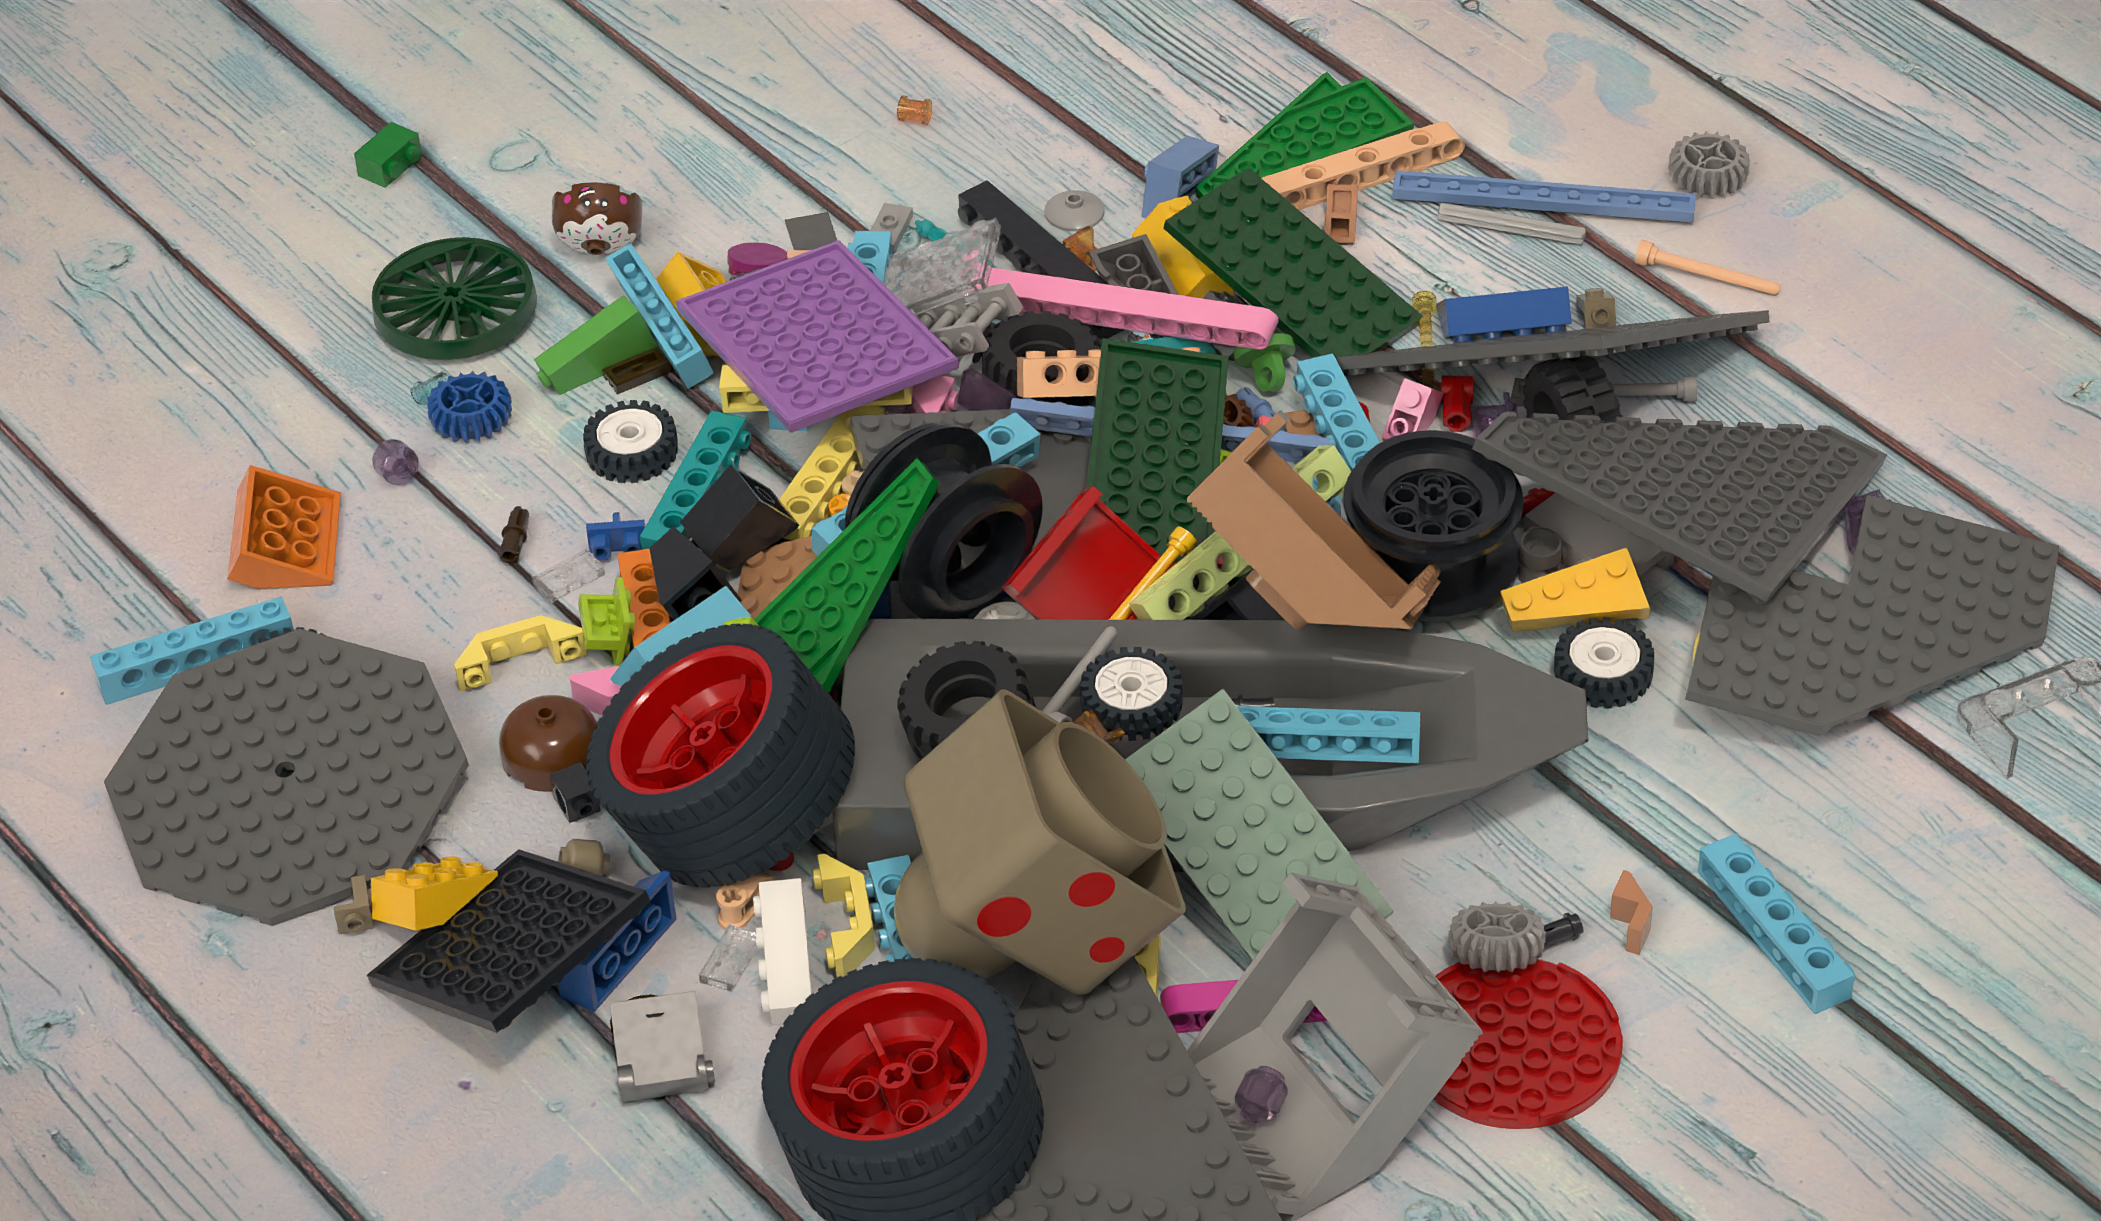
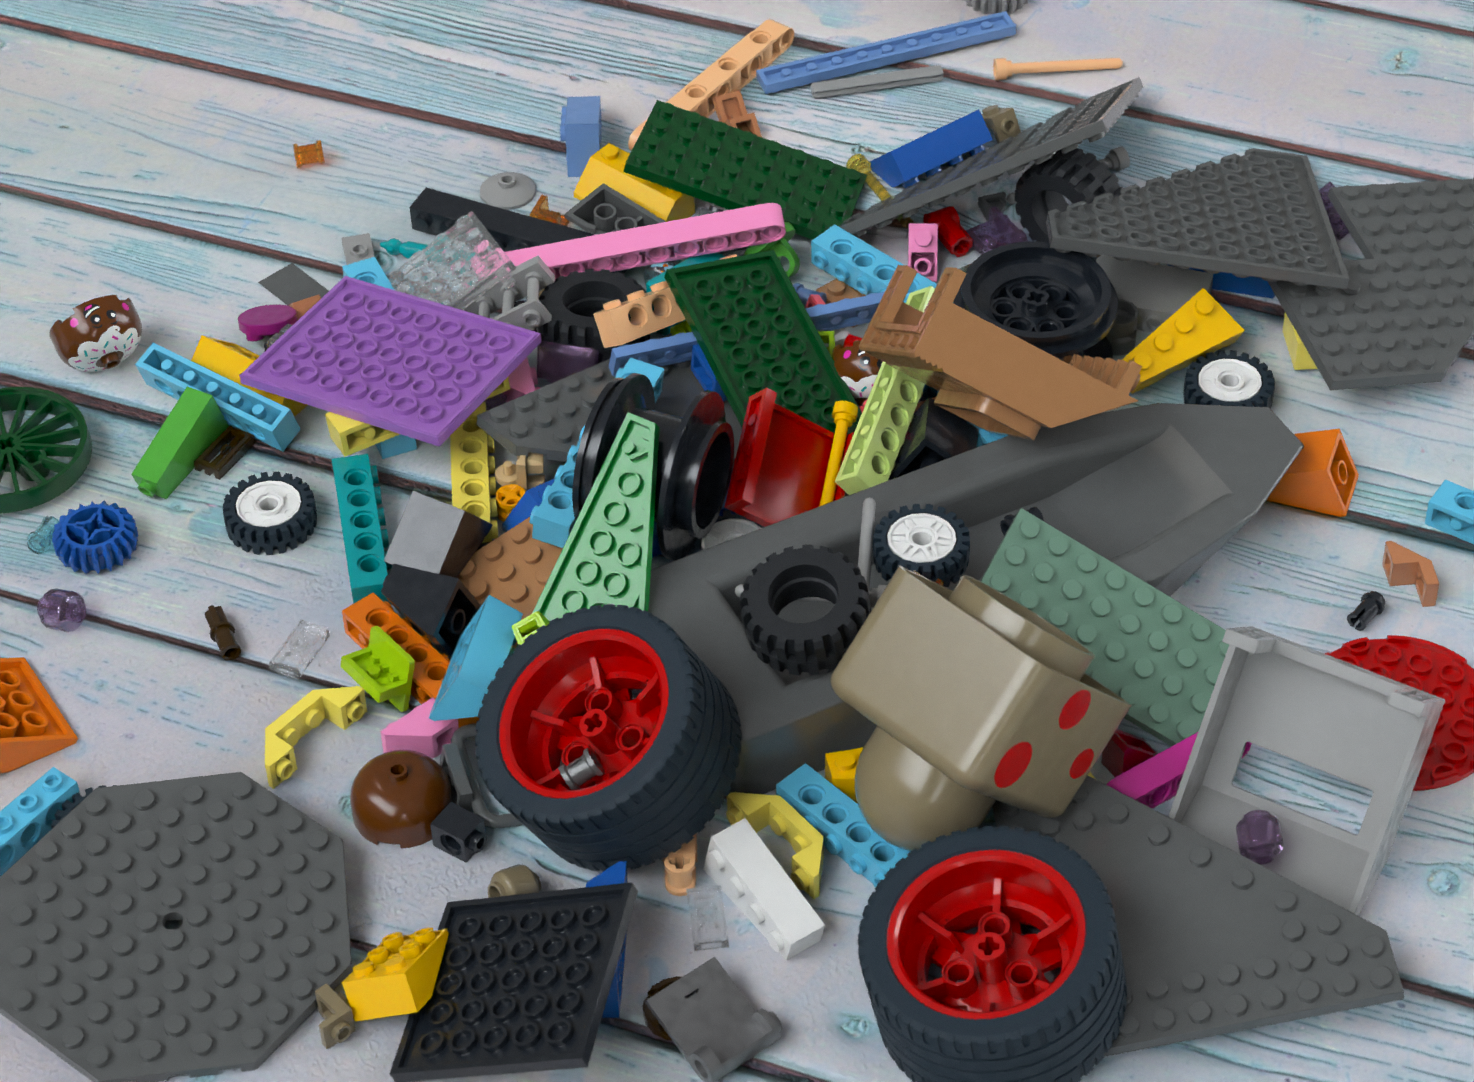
camera: 30 degrees left, 0 degrees up
(614, 536) = (321, 597): blue hips -> none
(672, 773) = (581, 770): none -> dark grey bush
(1214, 963) = (1125, 752): none -> dark red slope
(1315, 126) = (660, 63): green wing -> none
(1337, 733) = (1120, 511): medium azure brick -> none
(1497, 937) = (1335, 630): light grey gear -> none
(1613, 776) = (1320, 476): none -> orange slope

